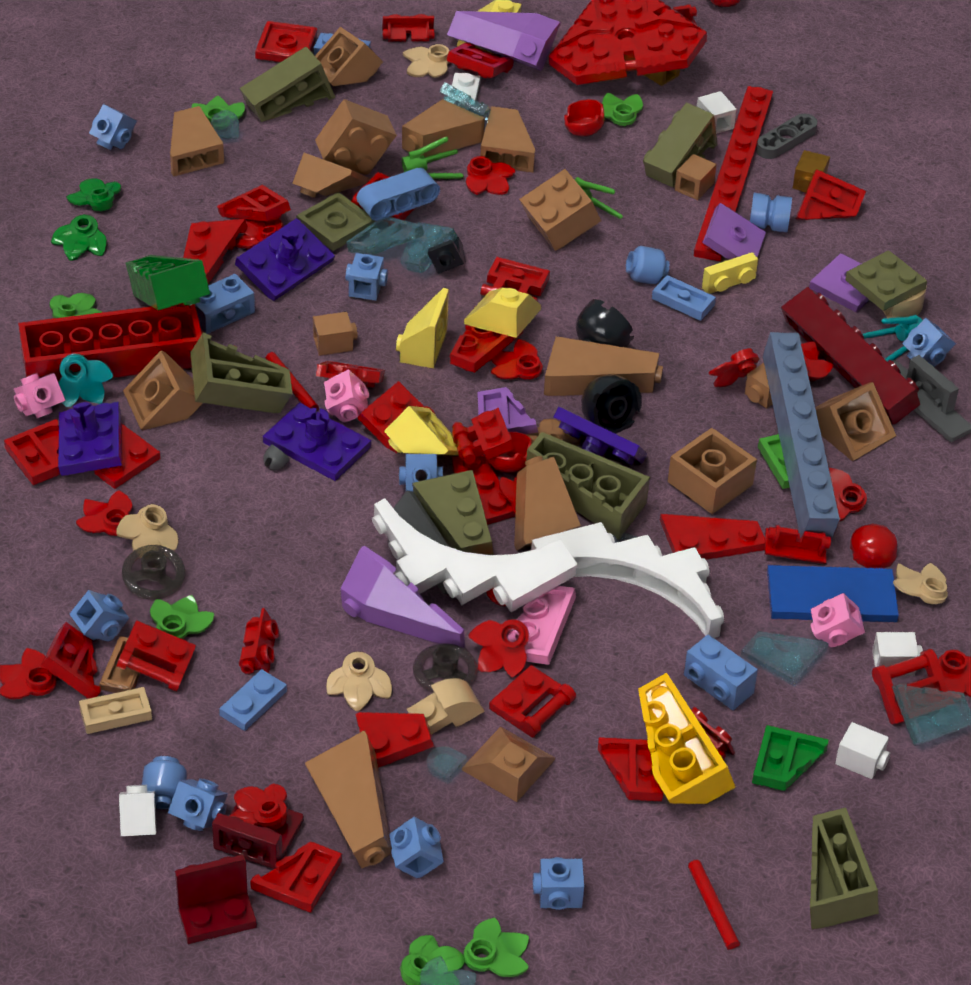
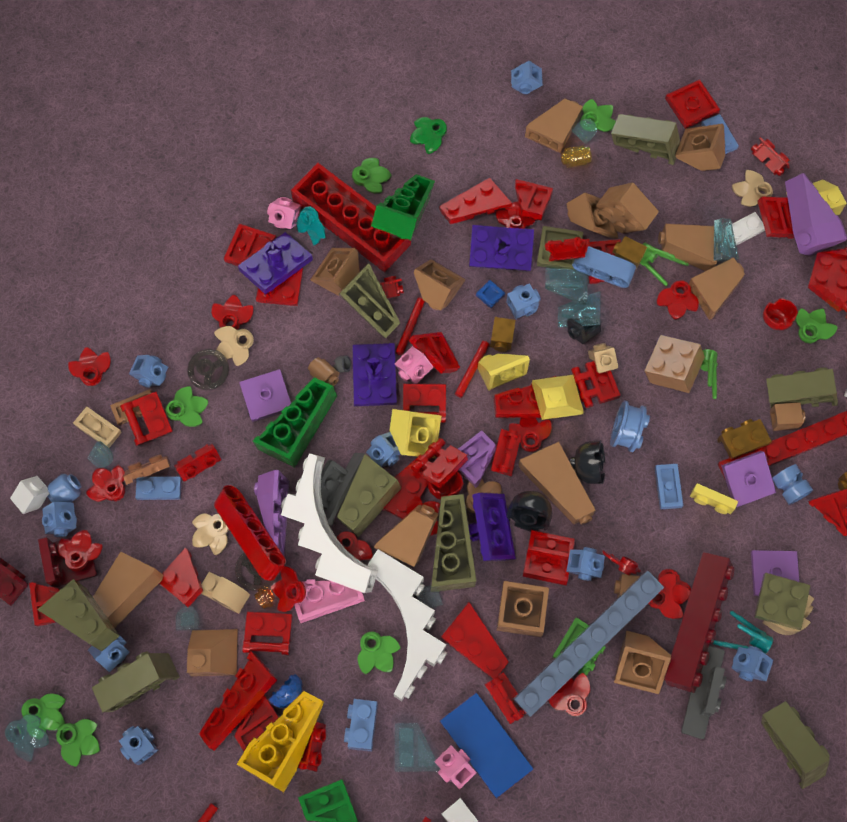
camera: 55 degrees right, 25 degrees up
(72, 660) = (111, 381): red wing -> none
(96, 194) = (471, 112): green plate -> none
(156, 726) = (100, 455): none -> clear light blue tile
(197, 743) = (105, 482): none -> red plate
(222, 691) = (137, 470): none -> nougat wing
(227, 302) = (435, 243): medium blue brick -> none
(241, 543) = (265, 395): none -> medium lavender plate
(246, 148) = (576, 156): none -> clear yellow brick
(270, 476) = (323, 371): none -> medium nougat brick
(274, 329) = (437, 284): none -> medium nougat slope
(314, 531) = (298, 423): none -> green wedge
(325, 302) = (490, 294): none -> blue tile
(334, 333) = (463, 319): medium nougat brick -> none
(346, 209) = (567, 249): none -> red hinge
(355, 826) = (80, 614): none -> olive wedge
(384, 314) = (502, 334): none -> pearl gold brick
(396, 364) = (472, 369): none -> red bar
(402, 632) = (249, 533): none -> red beam
(403, 161) = (630, 251): none -> pearl gold brick
(476, 842) = (134, 680): none -> olive wedge
(488, 676) = (264, 598): none -> clear orange plate
(498, 252) = (604, 357): none -> tan bracket
(524, 390) = (506, 452): none -> red hinge
(590, 761) = (247, 690): none -> red wing
(593, 276) = (629, 426): none -> medium blue wheel
(624, 709) = (287, 693): none -> blue hair
(647, 265) = (677, 446): medium blue head -> none
(647, 622) = (379, 655): none -> bright green plate
(668, 426) = (548, 557): none -> red slope
(689, 214) = (744, 439): none -> pearl gold bracket
(709, 396) = (586, 563): none -> medium blue brick
(874, 546) = (545, 744): red hair -> none
(927, 585) = (537, 790): tan plate -> none

